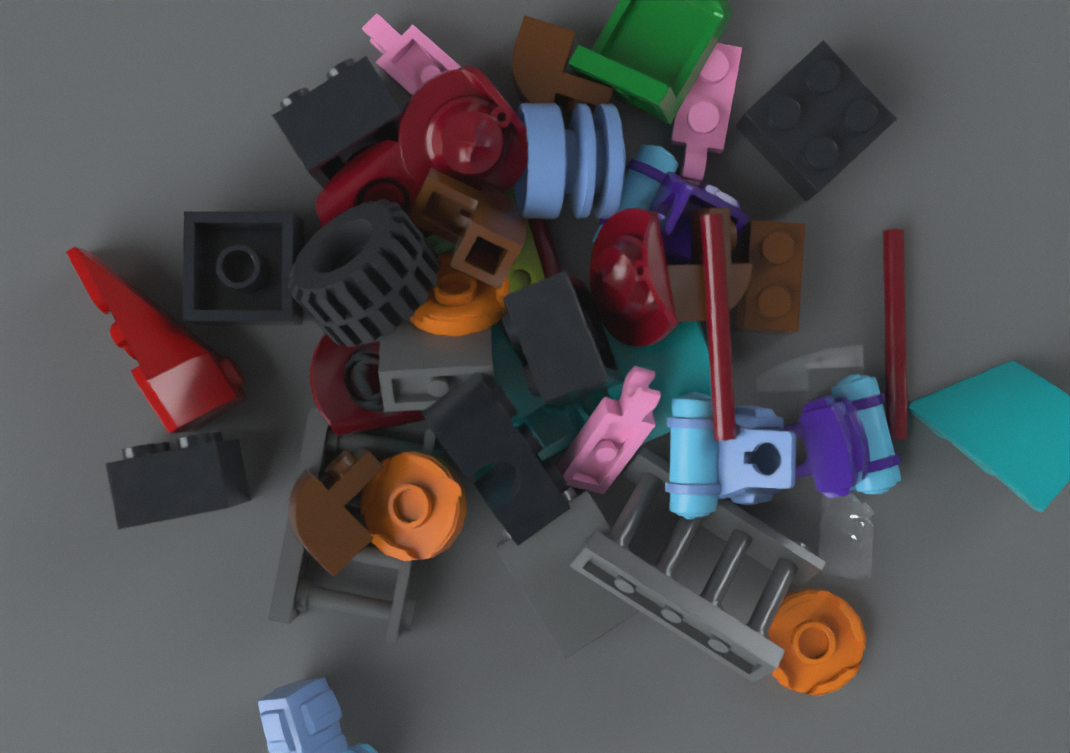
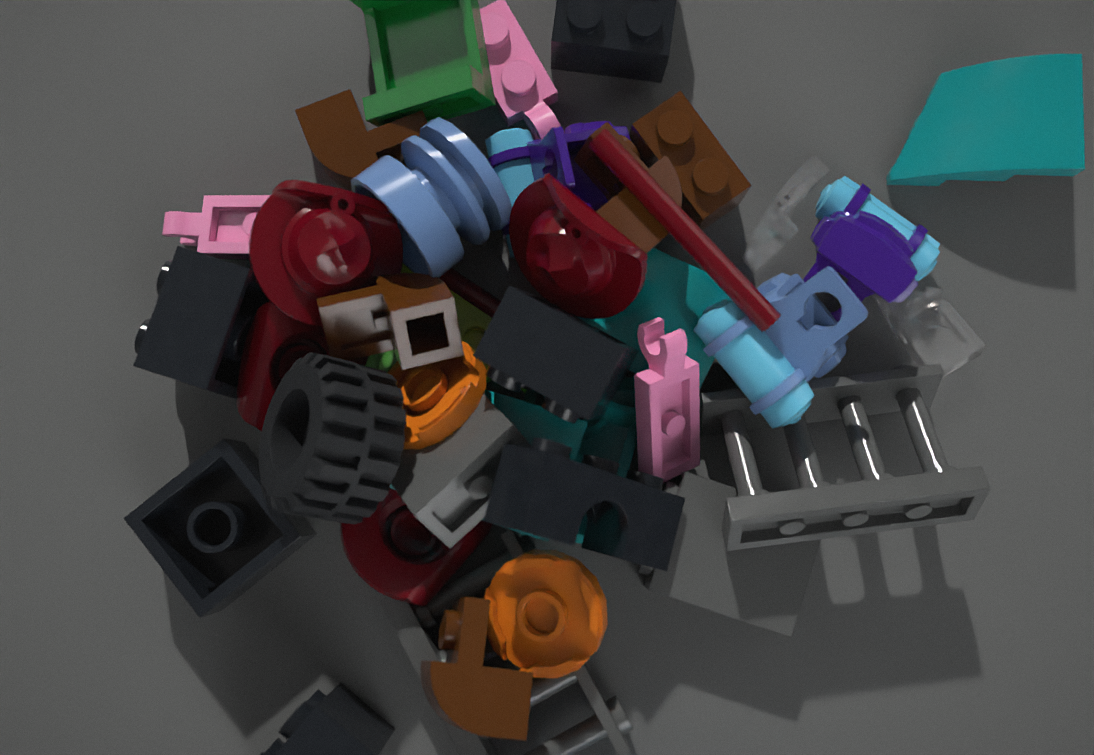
camera: 40 degrees left, 5 degrees down
(176, 369) = (230, 668): red wedge -> none
(820, 641) = (991, 431): orange tile -> none
(895, 333) = (826, 127): dark red bar -> none

